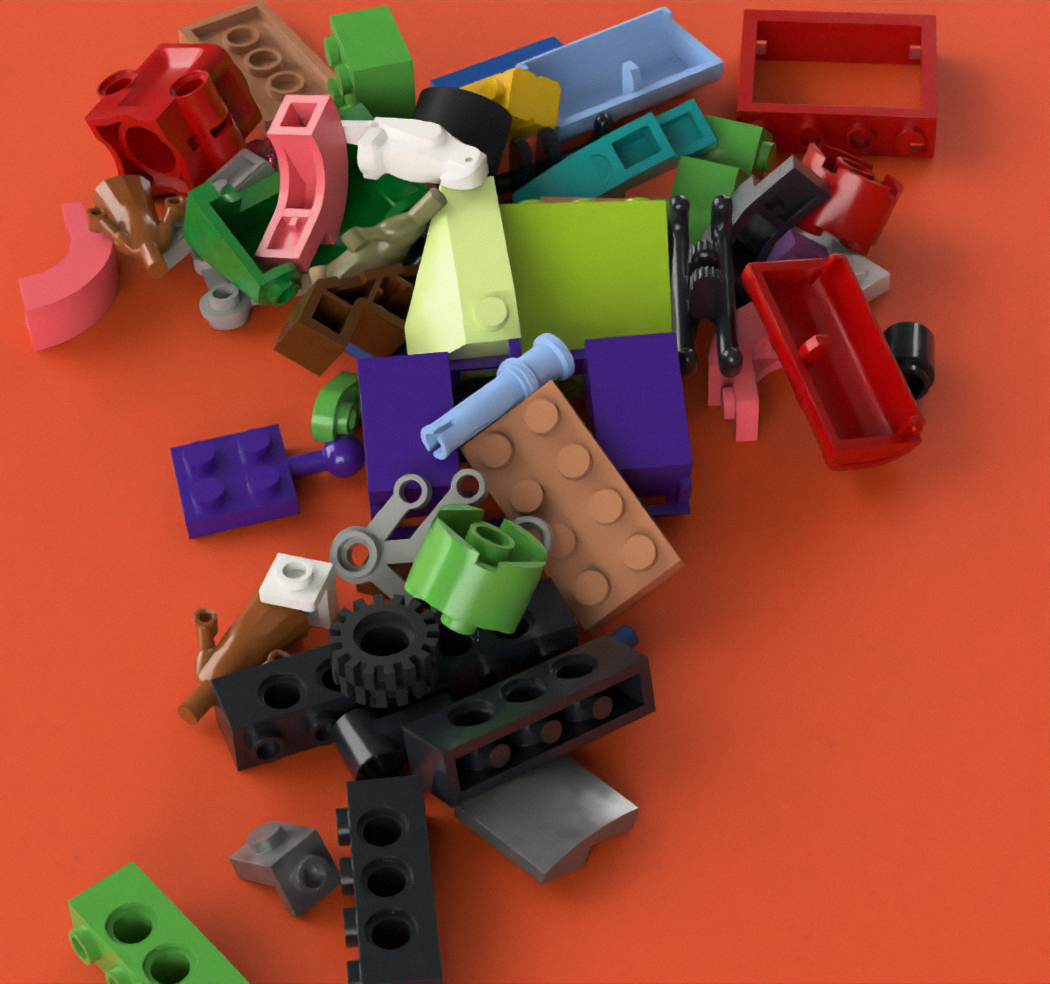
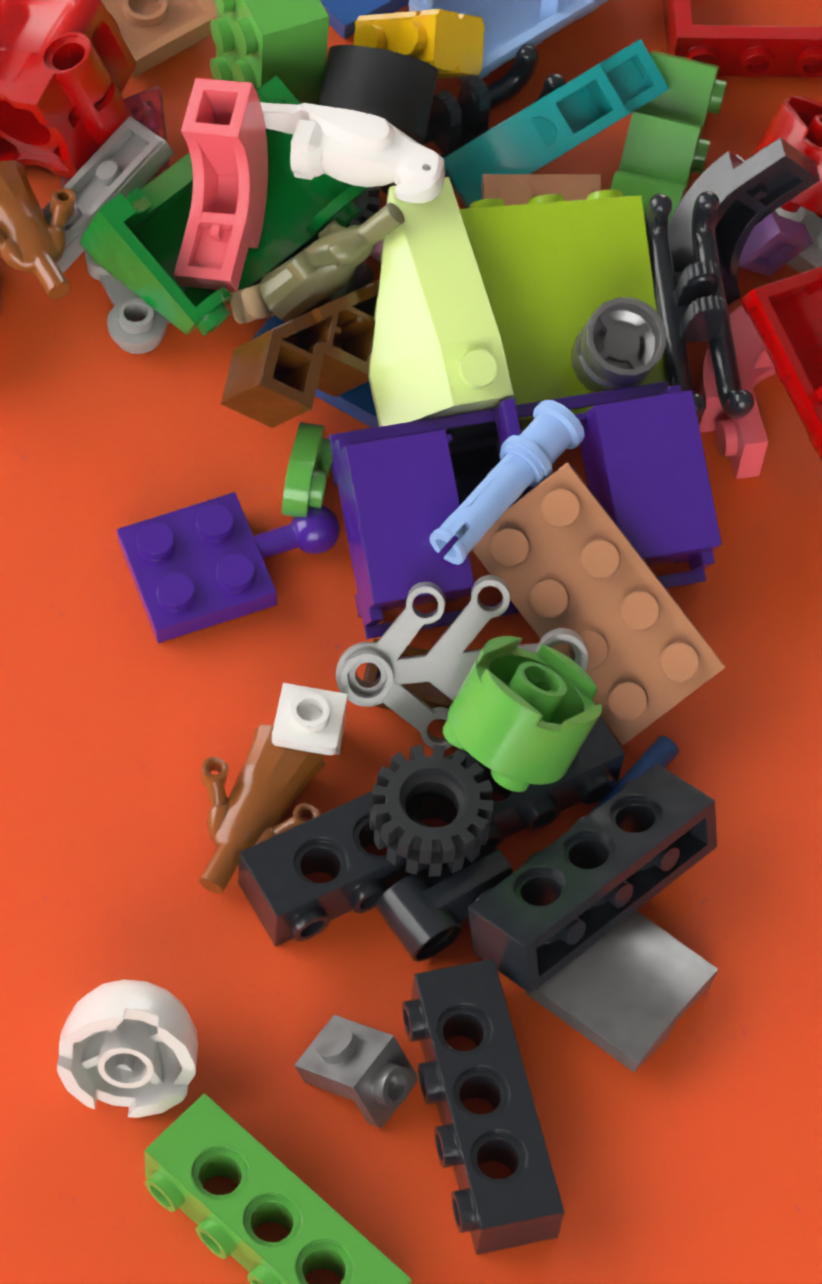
camera: 15 degrees left, 15 degrees up
(74, 825) = (128, 1048): none -> white cylinder
(625, 301) = (618, 345): none -> flat silver wheel

